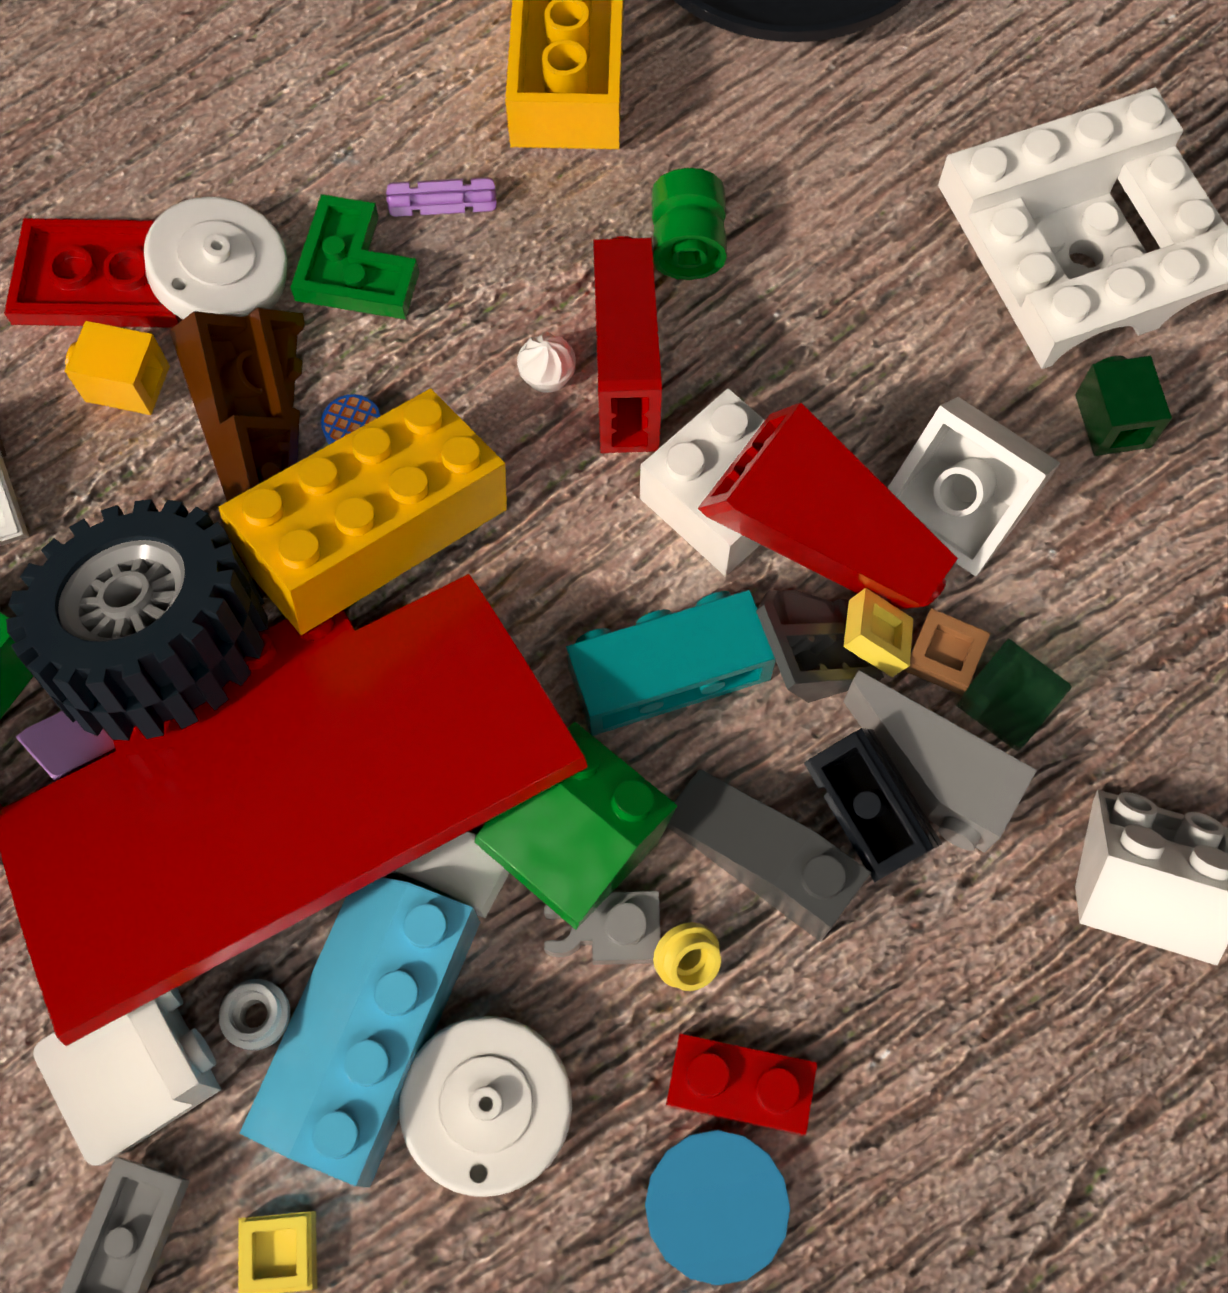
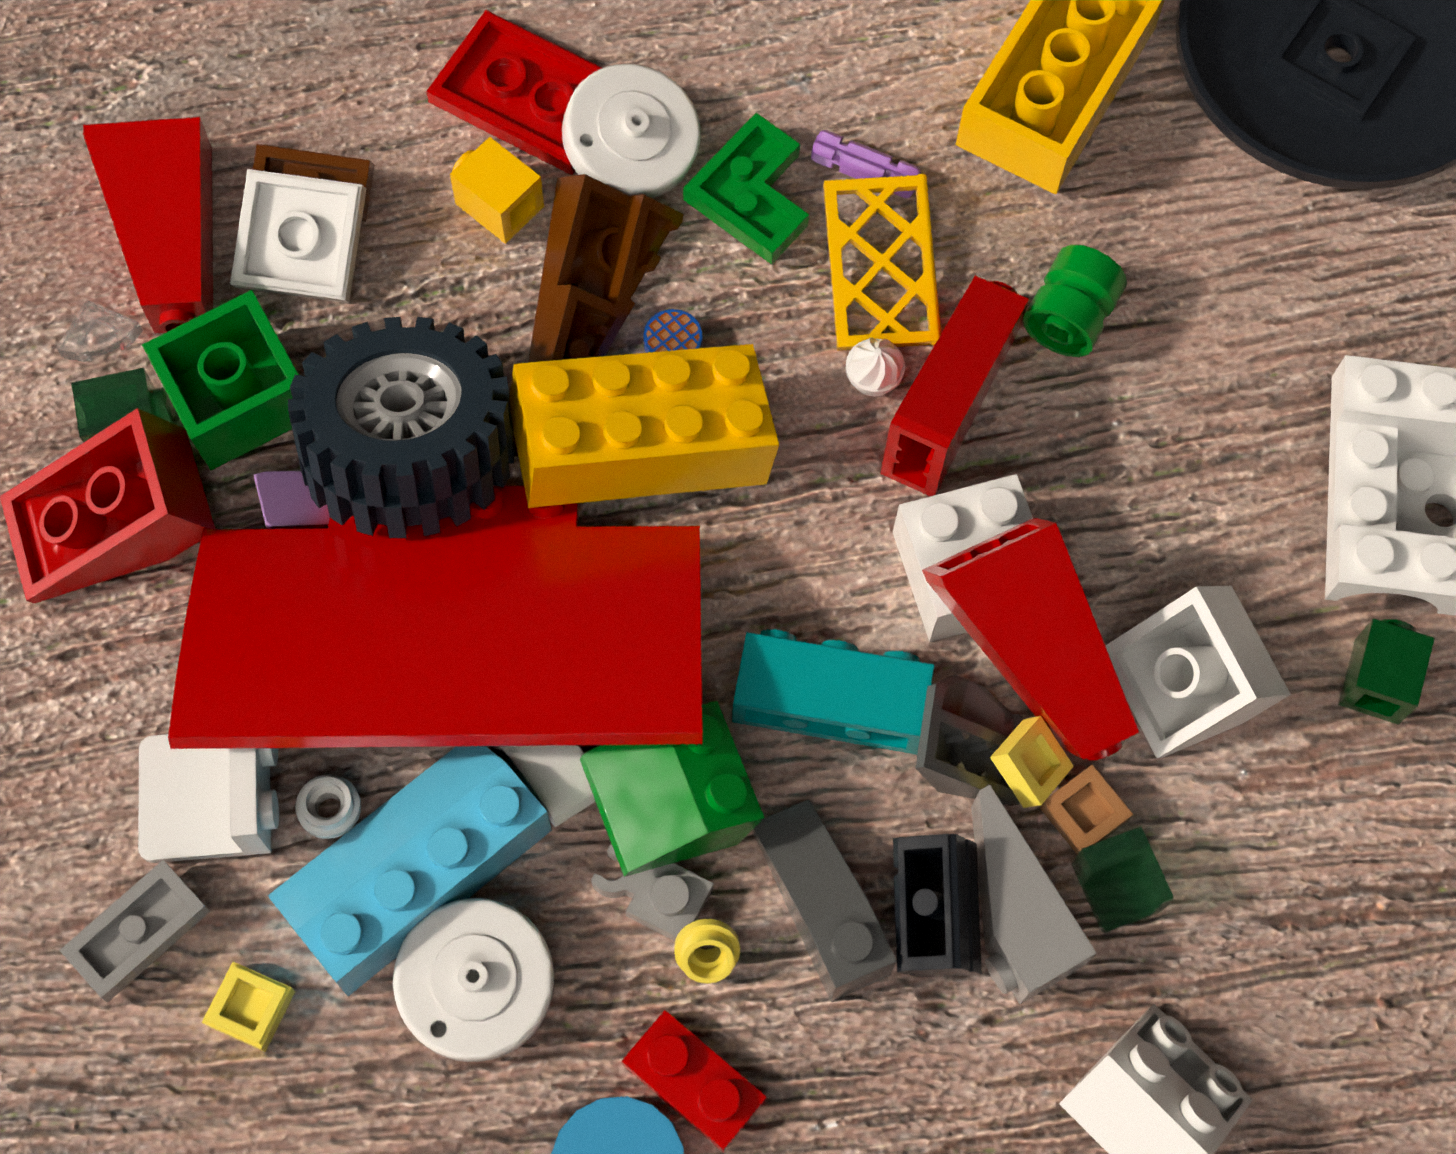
camera: 25 degrees right, 0 degrees up
(520, 230) = (919, 231): none -> yellow window

